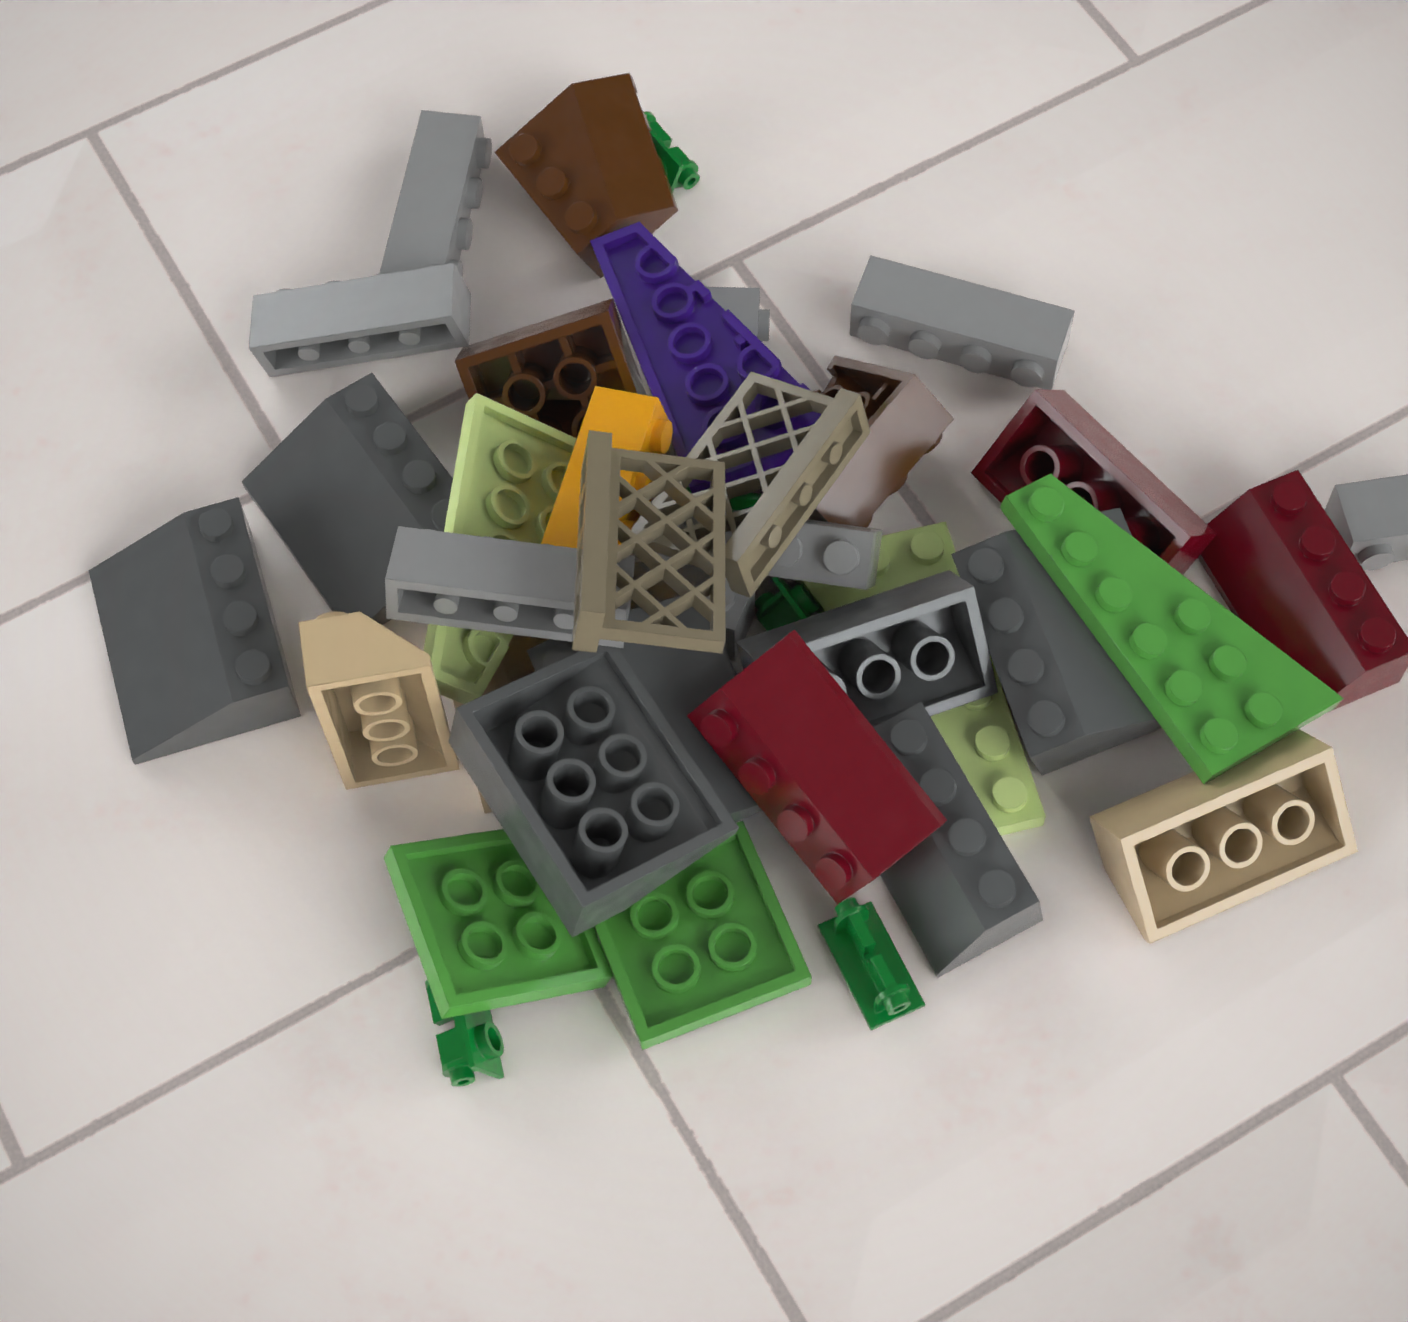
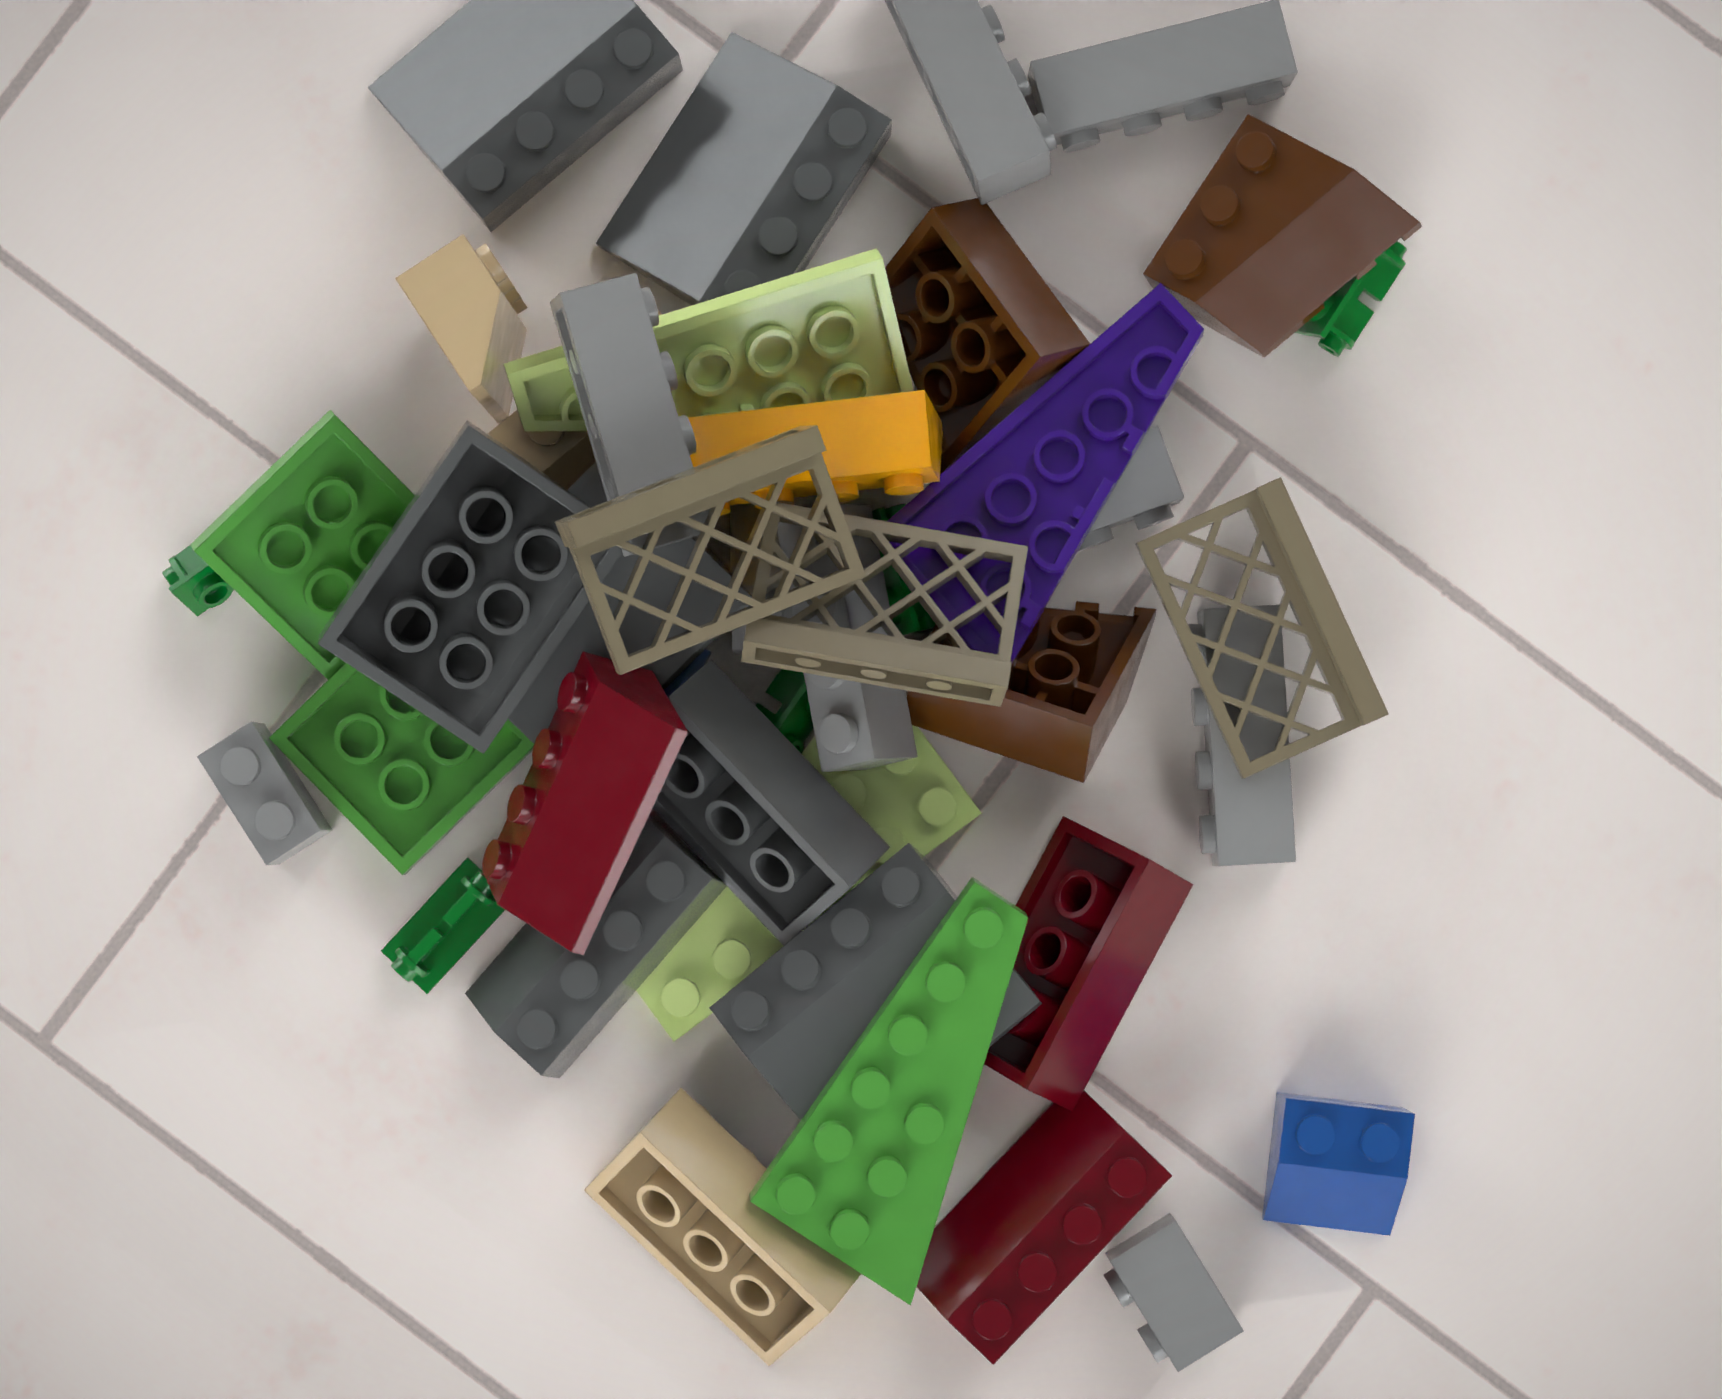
camera: 65 degrees right, 25 degrees up
(690, 1064) = (264, 793): none -> light grey brick
(881, 232) = (1314, 608): none -> dark tan fence
(1323, 375) = (1337, 1163): none -> blue slope

